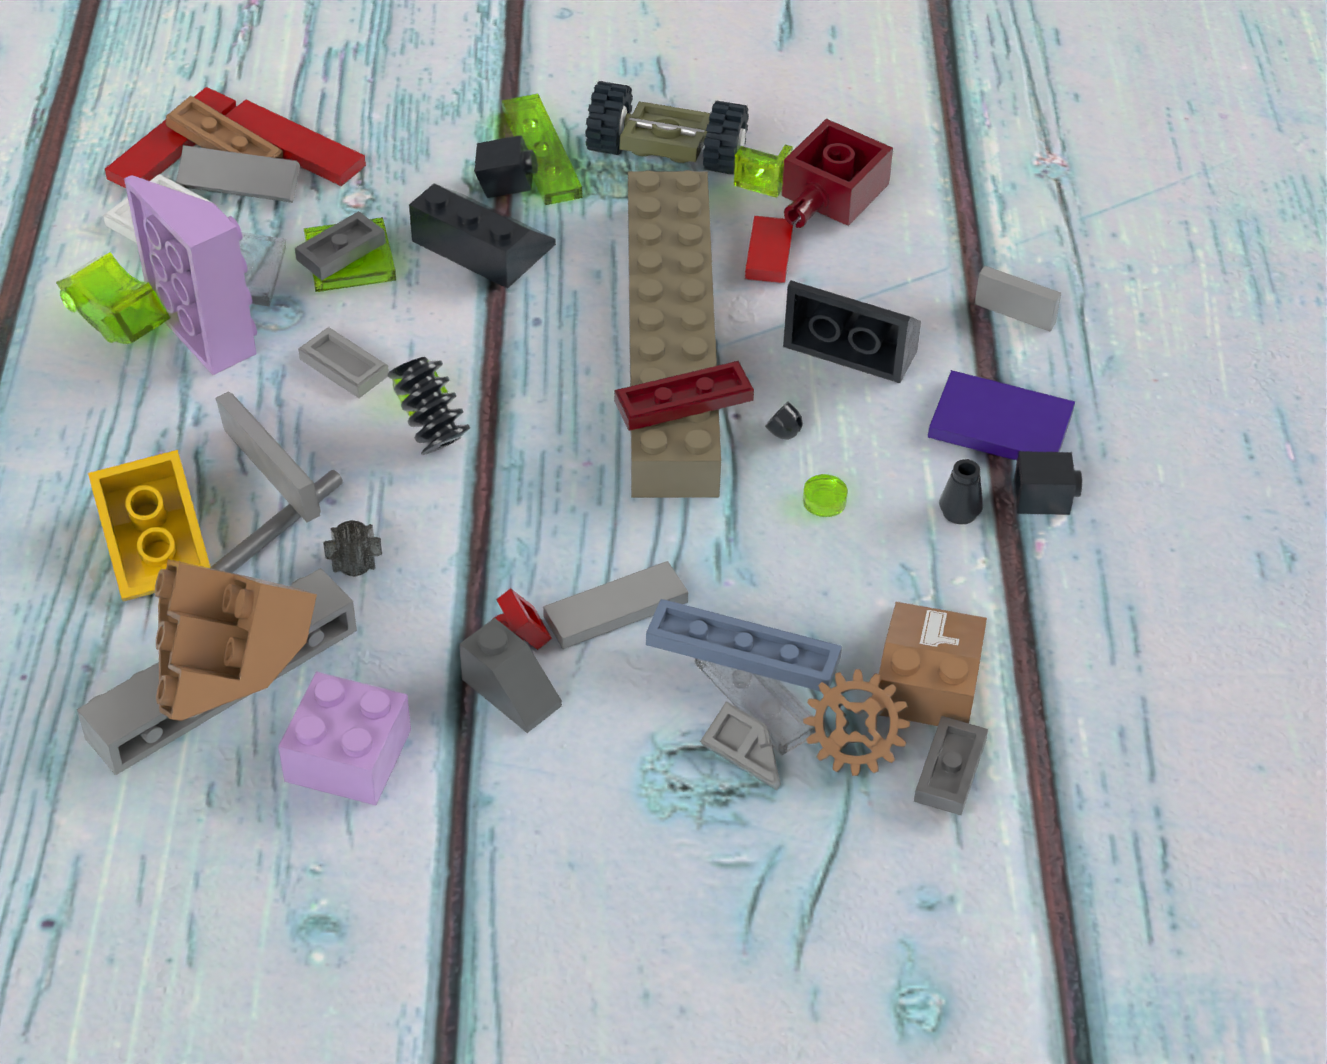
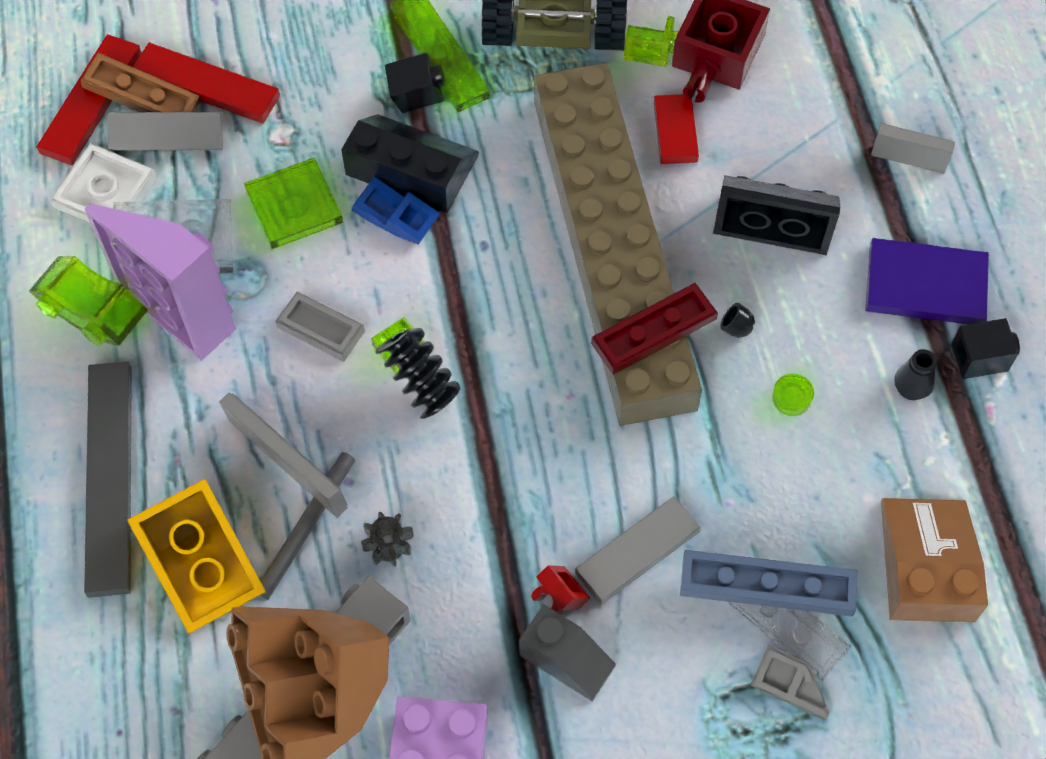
camera: 10 degrees left, 15 degrees up
(85, 450) = (108, 480): none -> dark grey tile
(340, 245) = (286, 202): flat silver plate -> none
(454, 280) = (398, 215): none -> blue slope
(840, 738) = (885, 666): medium nougat gear -> none
(951, 765) = (975, 668): flat silver plate -> none

